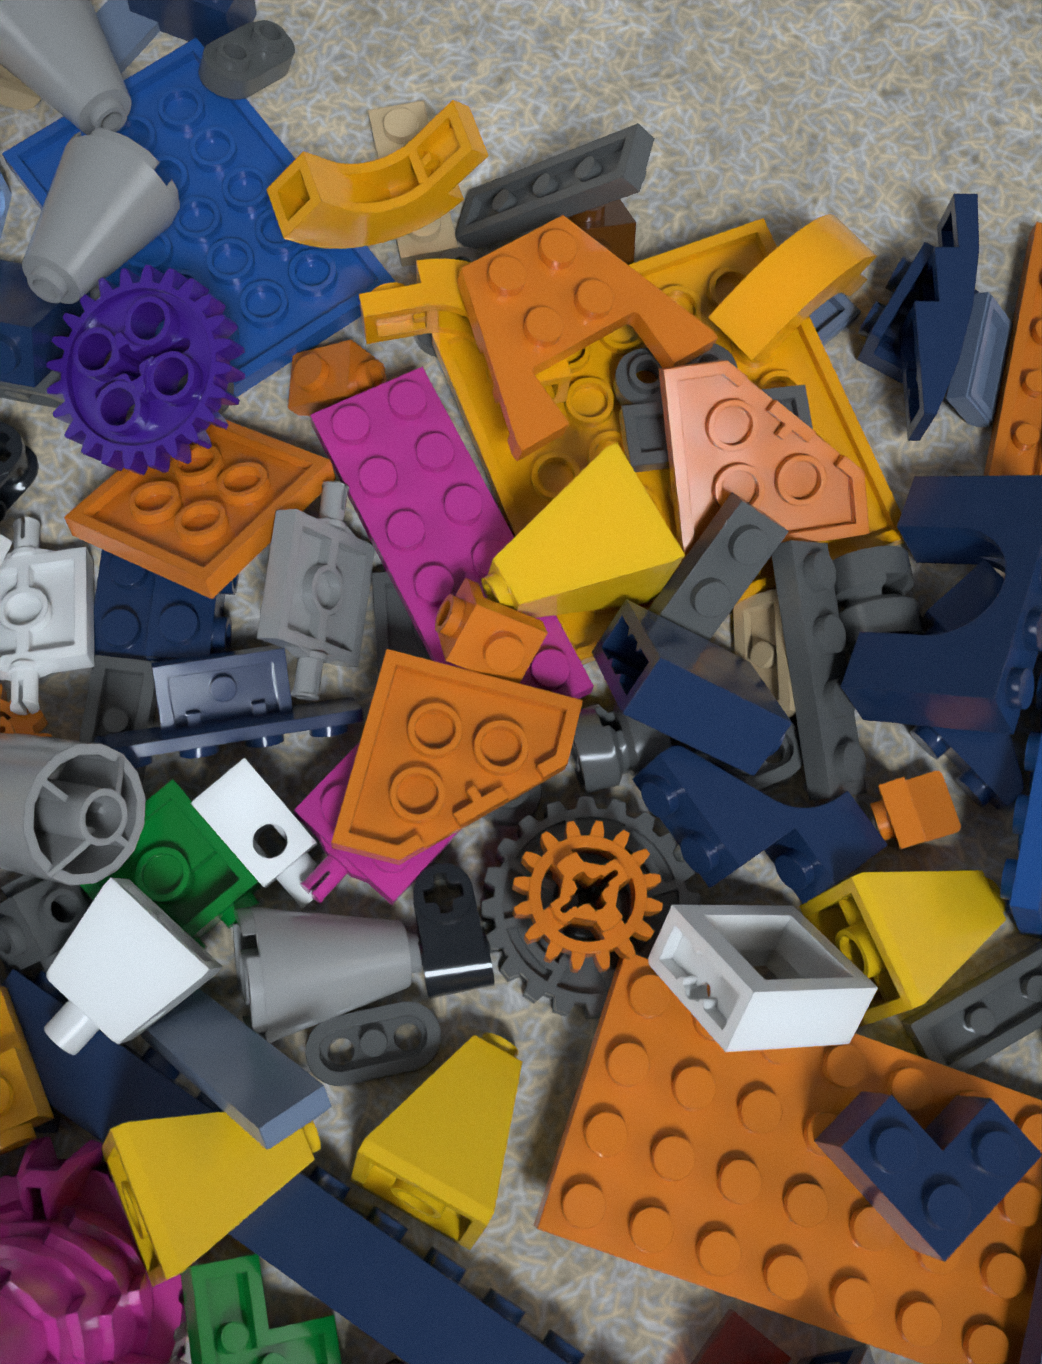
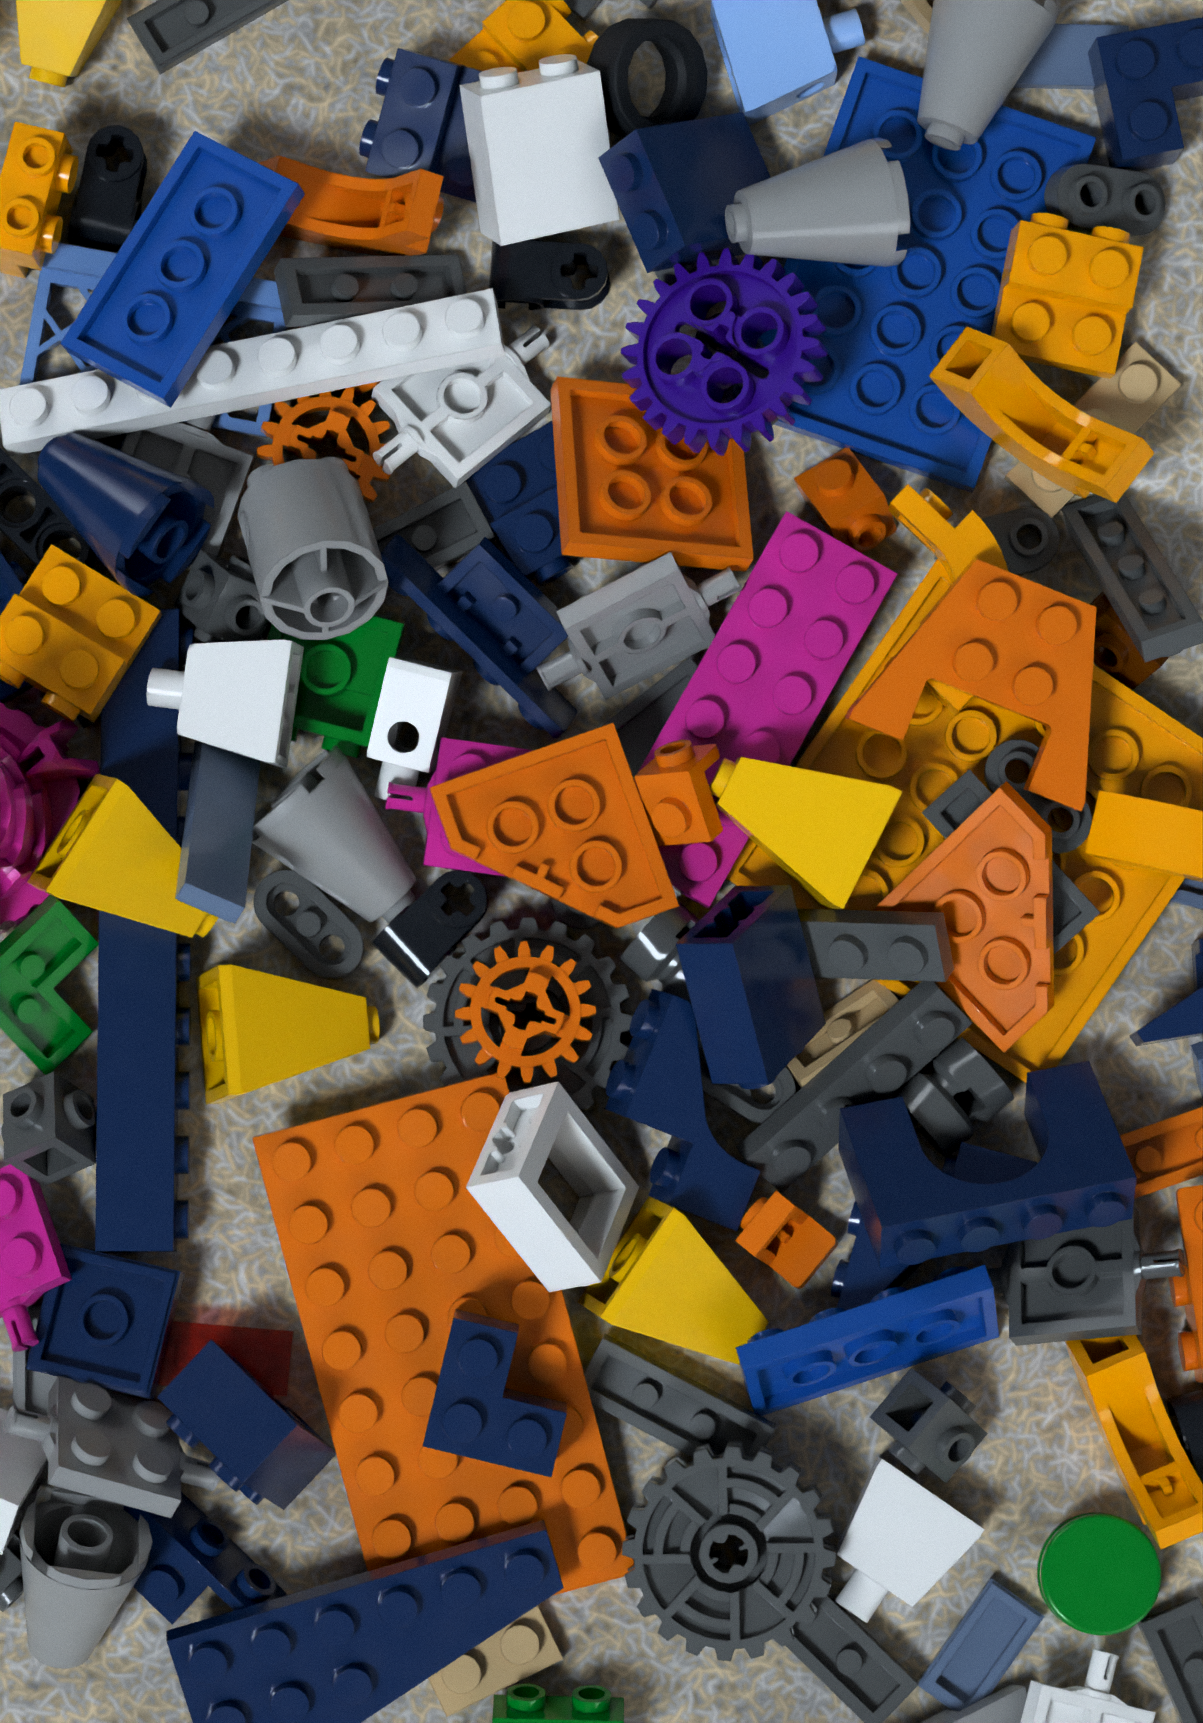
camera: 60 degrees right, 10 degrees up
(293, 108) = (1066, 294): none -> light orange plate

